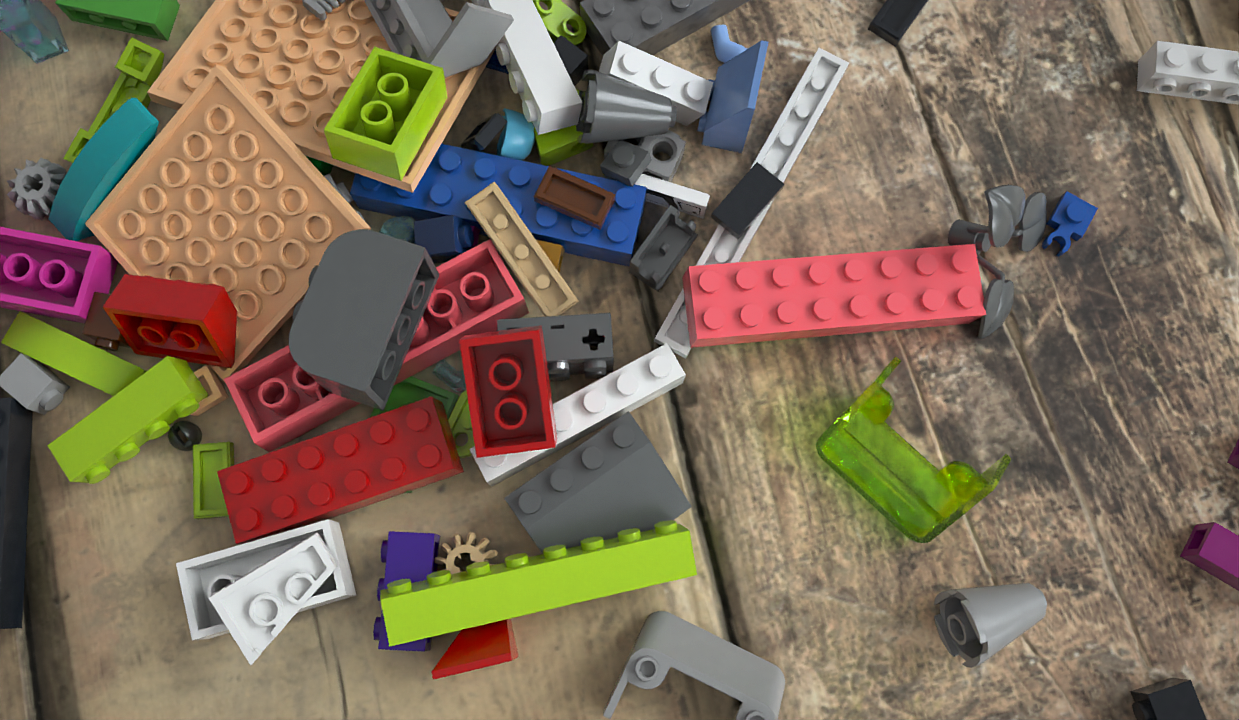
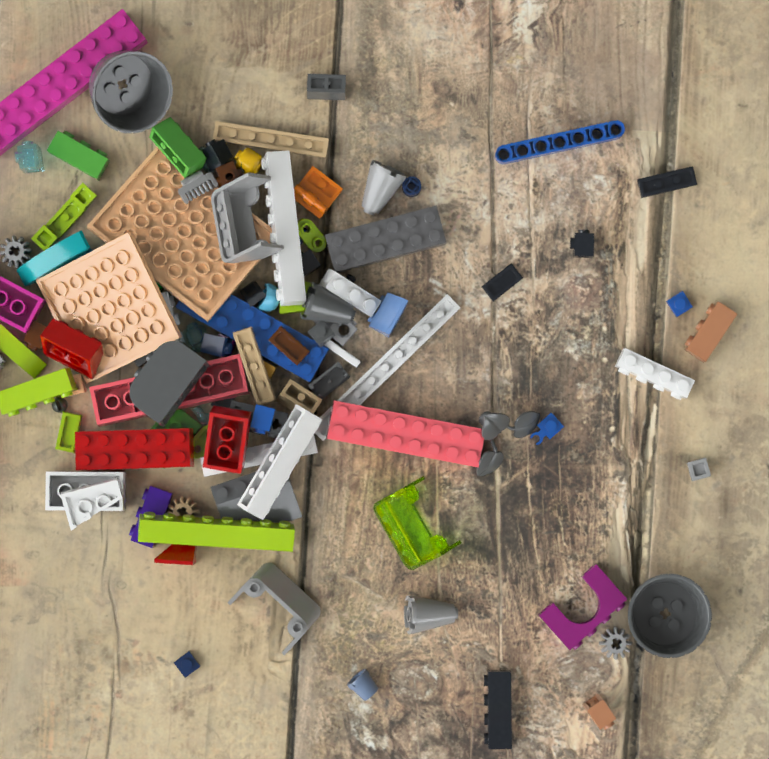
camera: 15 degrees right, 10 degrees up
(386, 113) = (206, 281): lime brick -> none
(566, 331) = (262, 419): none -> blue brick
(622, 292) = (296, 394): none -> tan brick
(622, 407) = (279, 462): none -> white brick
(723, 47) = (398, 279): light blue arm -> none
(747, 200) = (379, 369): black tile -> none

